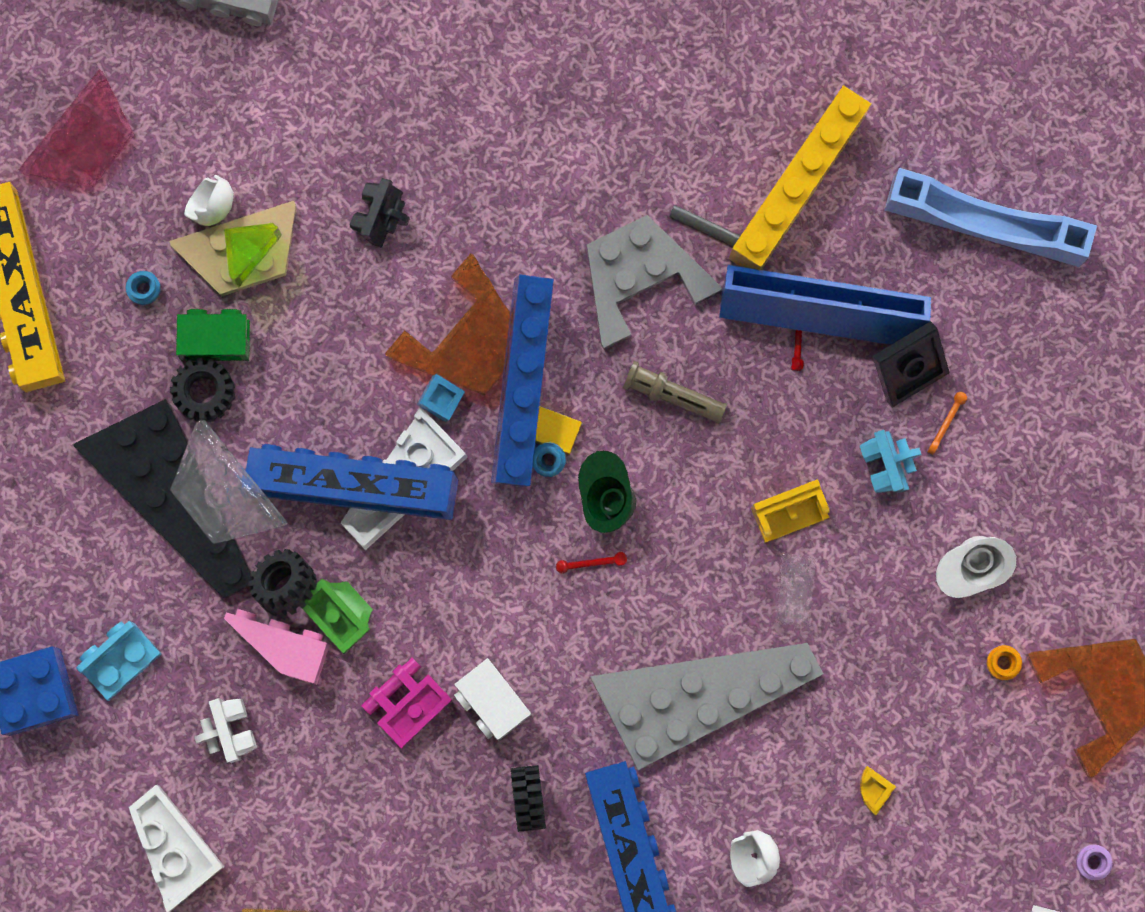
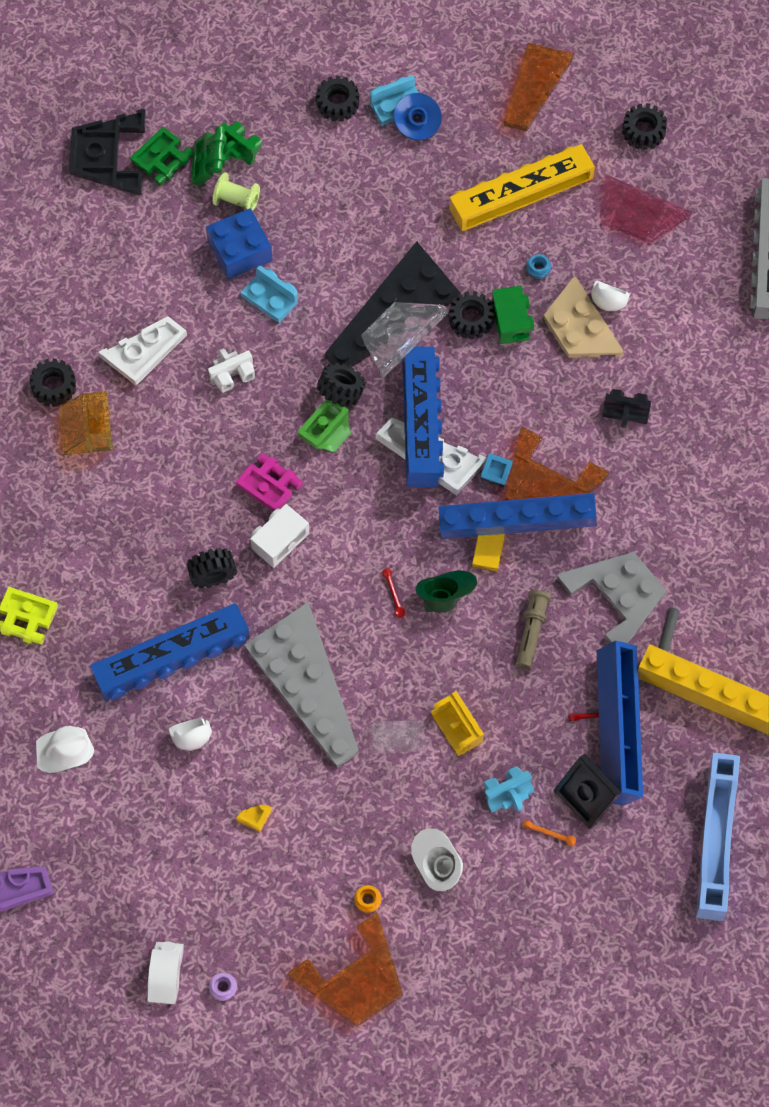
camera: 85 degrees right, 15 degrees down
(247, 248) = (577, 320): clear neon green slope -> none
(286, 651) = (292, 396): bright pink slope -> none
(538, 459) = (463, 544): dark azure plate -> none

